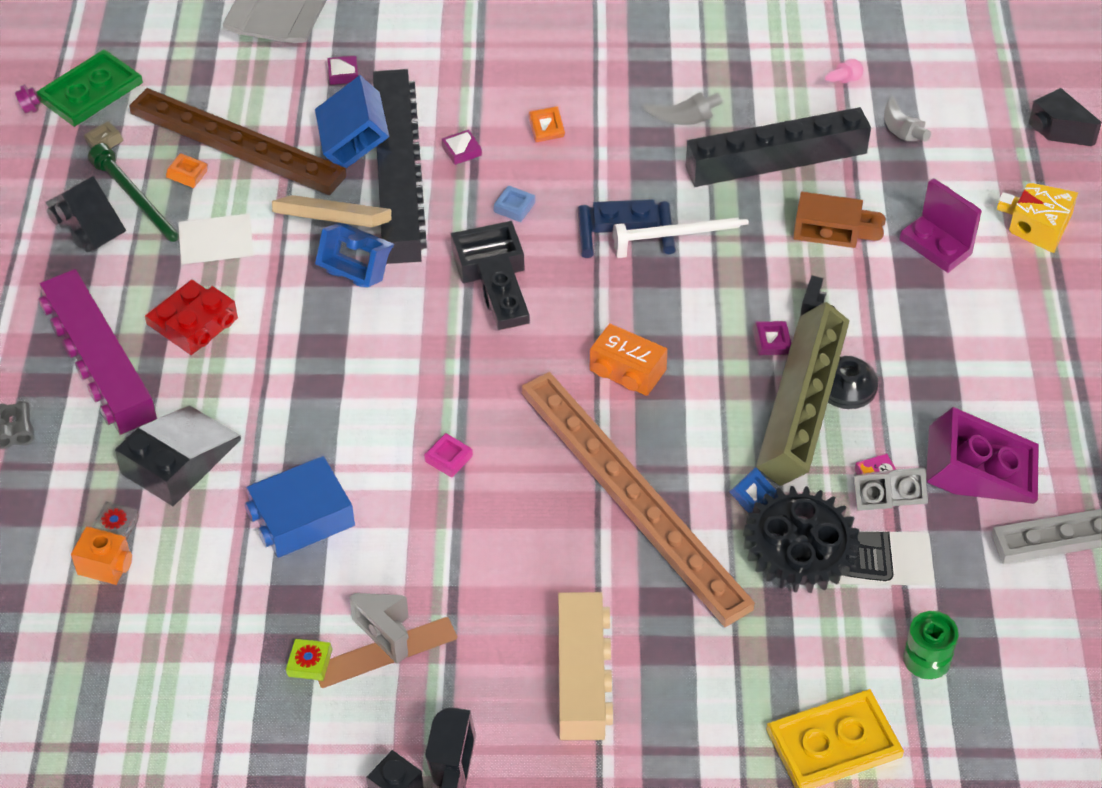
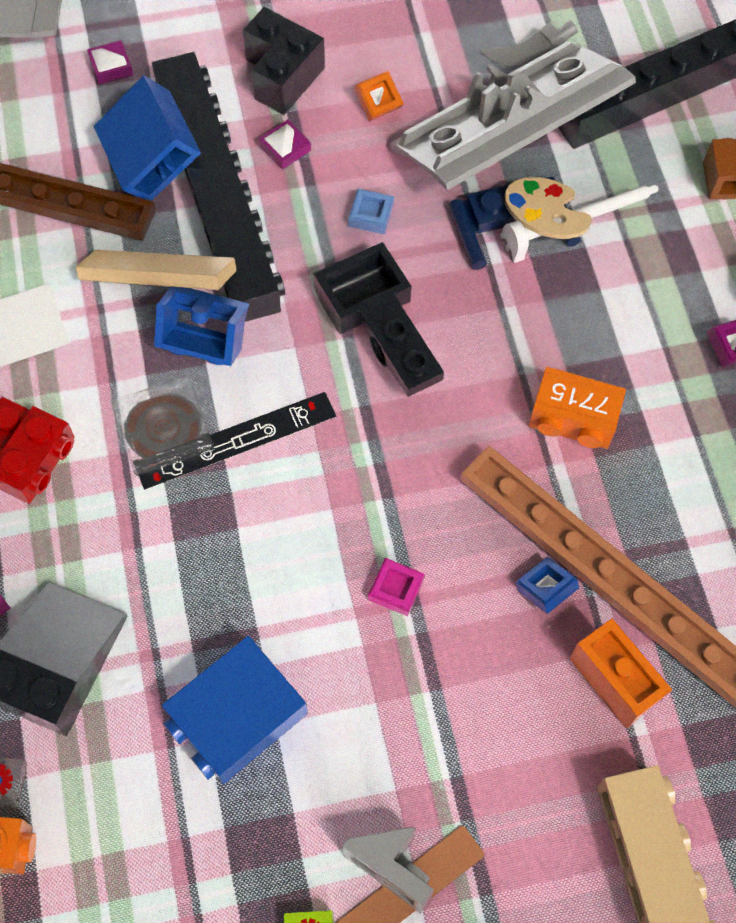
camera: 15 degrees left, 15 degrees up
(305, 320) = (162, 425): none -> clear tile
(358, 340) = (249, 436): none -> black sticker
(477, 86) = (284, 59): none -> black brick
(564, 472) = (547, 585): none -> blue tile
(595, 532) = (619, 672): none -> orange panel
(643, 145) = (511, 112): none -> light grey hinge
(645, 212) = (538, 201): none -> tan piece

